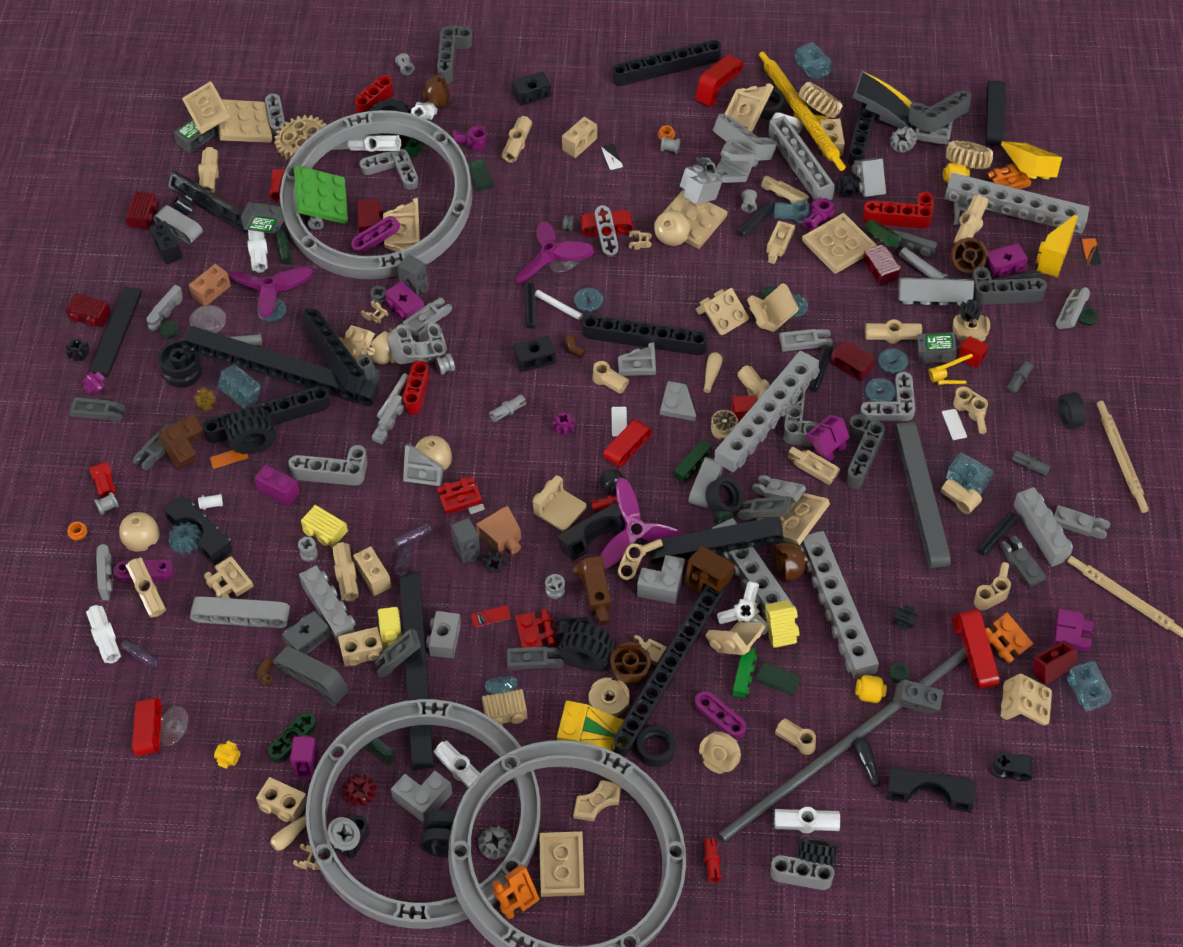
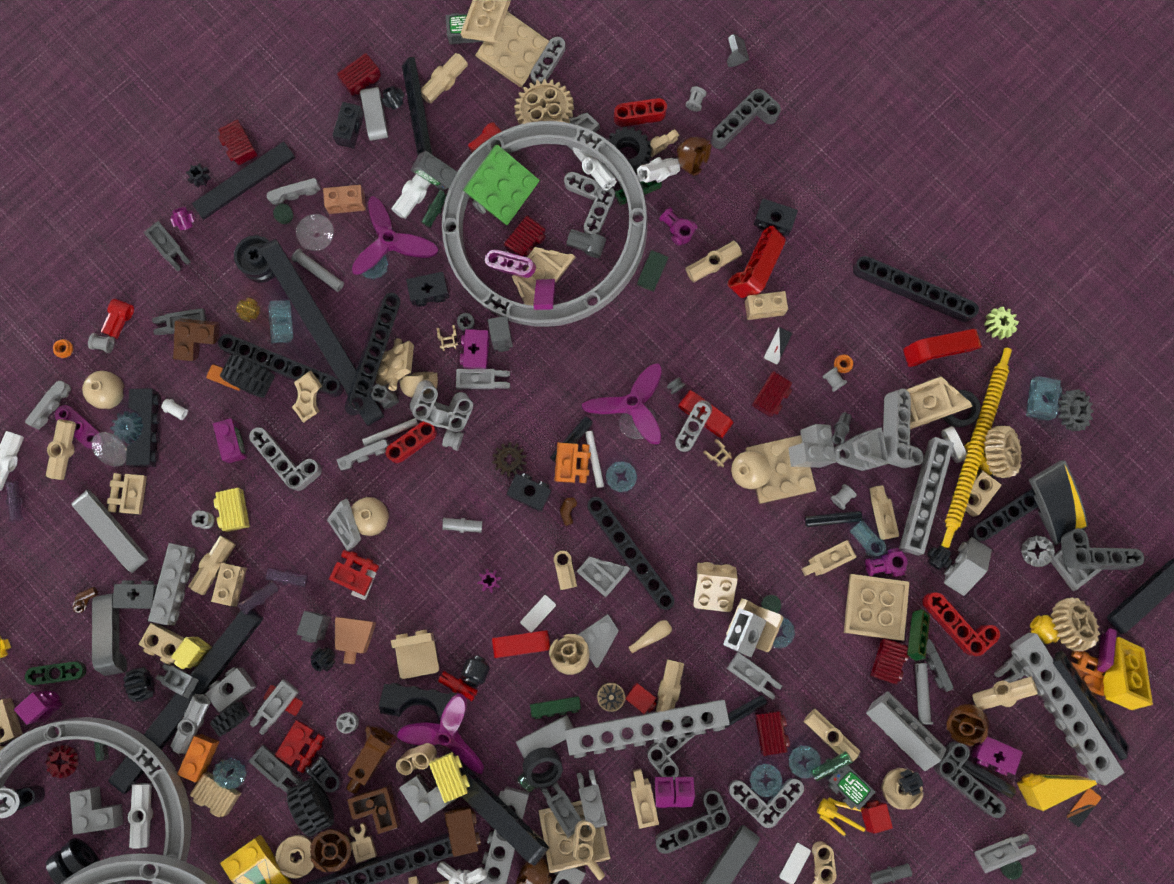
camera: 40 degrees right, 25 degrees up
(187, 569) = (109, 449): none -> clear dish
(312, 421) = (306, 402): none -> tan tile
(329, 293) = (418, 287): none -> black brick
(370, 683) = (139, 684): none -> black gear
(408, 23) = (739, 53): none -> dark grey tile
(409, 97) = (660, 143): none -> tan plate
(421, 188) = (591, 244): none -> dark grey piece
(421, 229) = (544, 294): none -> magenta tile
(435, 661) = (194, 715): none -> light grey piece
(464, 647) = (229, 718): none -> black tyre
(465, 690) = (198, 757): none -> orange brick
(489, 617) = (275, 705): none -> light grey hinge
(500, 342) = (504, 454): none -> dark brown gear
(545, 313) = (566, 462): none -> orange plate
(553, 117) = (760, 265): none -> red beam
(633, 611) = (379, 803): none -> reddish brown brick
(639, 181) = (772, 394): none -> dark red brick
(665, 539) = (448, 777): none -> light yellow brick
(669, 417) = (570, 654): none -> tan cylinder
(741, 42) = (1000, 329): none -> yellowish green gear
(770, 311) = (745, 632): none -> light grey brick
(804, 502) = (586, 841): none -> tan beam
(839, 51) = (1075, 410): none -> dark grey gear
(911, 341) = (831, 766): none -> clear green pin
(1004, 154) = (1107, 650): none -> magenta tile
(1027, 187) = (1091, 705): none -> black tile

